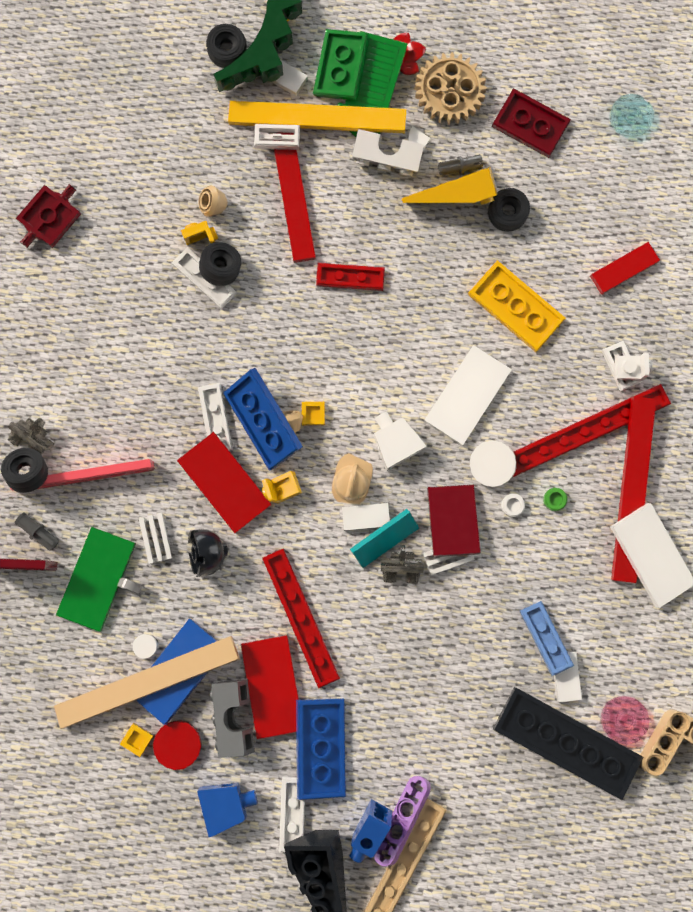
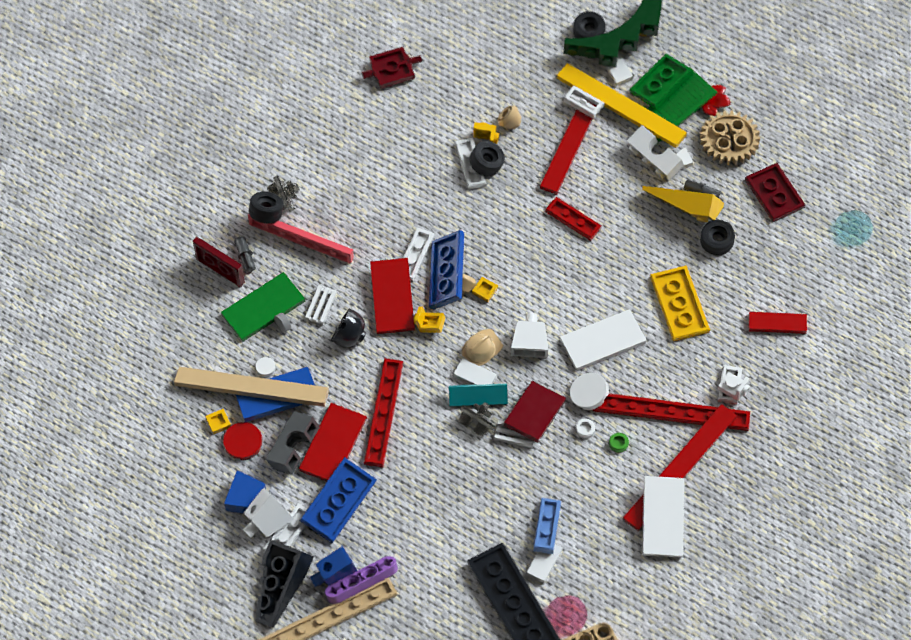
camera: 40 degrees right, 20 degrees down
(261, 820) = (265, 515): none -> white torso

